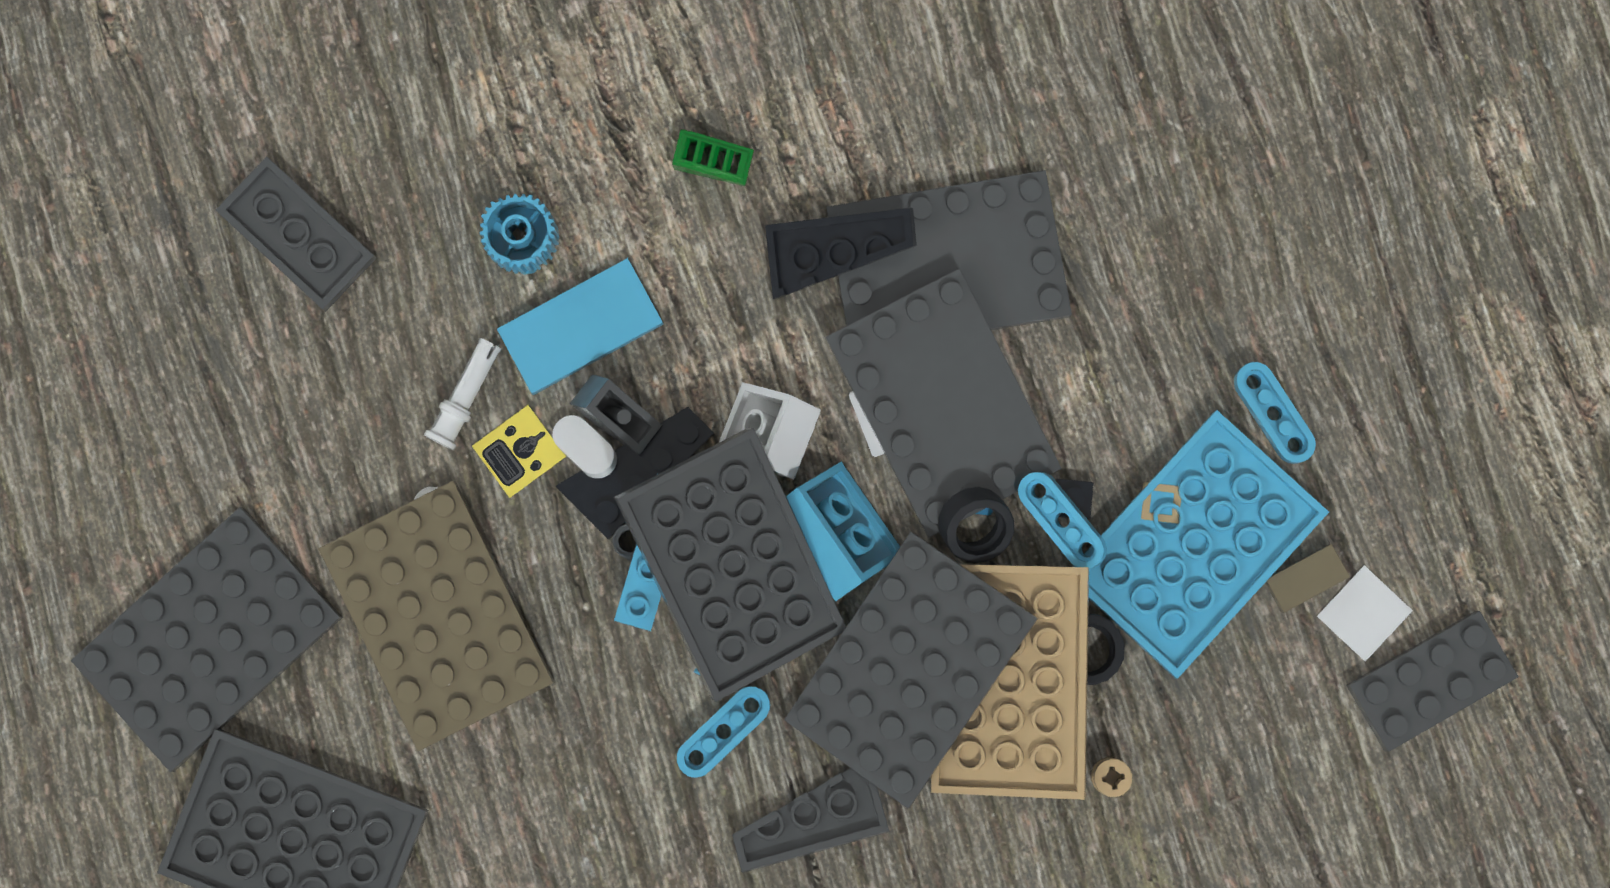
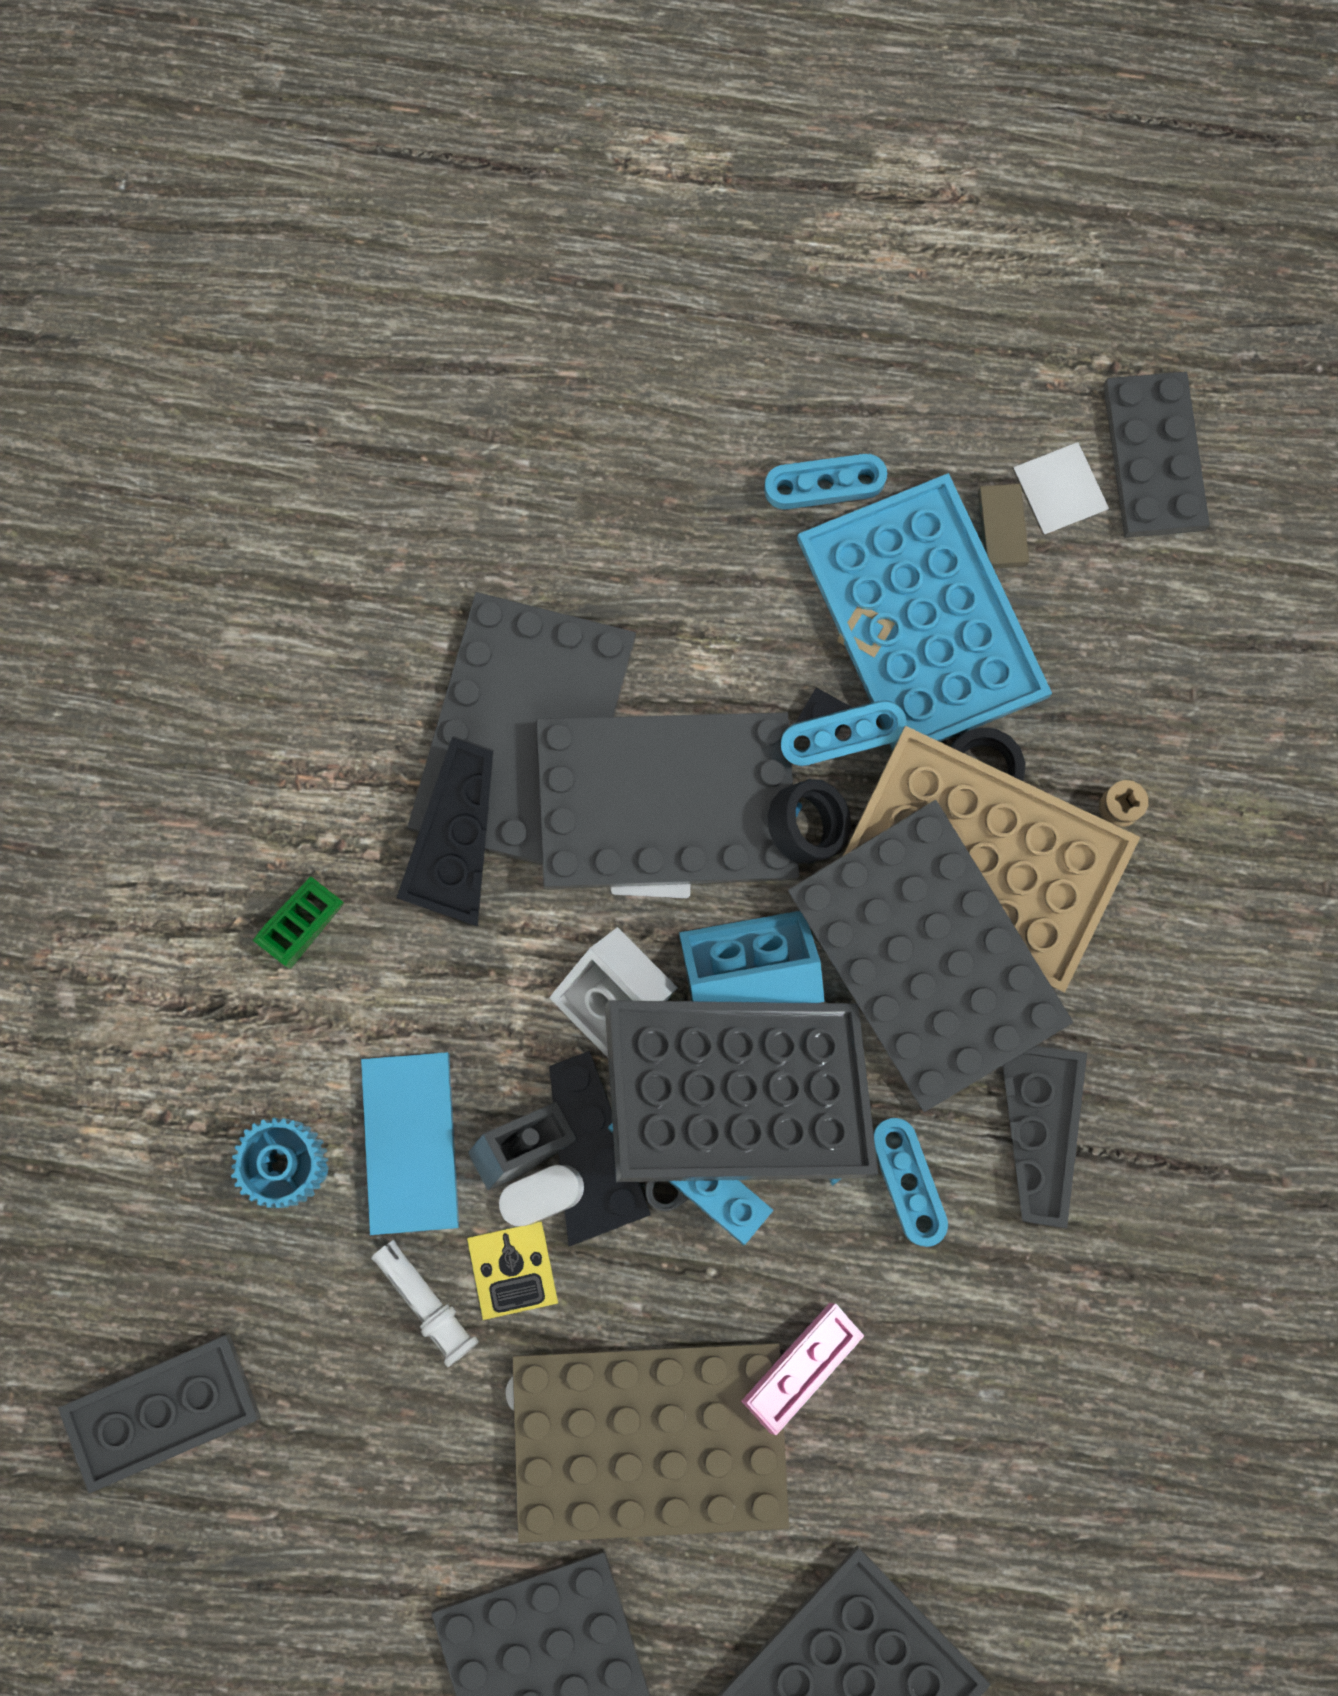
camera: 70 degrees left, 5 degrees down
(542, 709) = (802, 1368): none -> tile

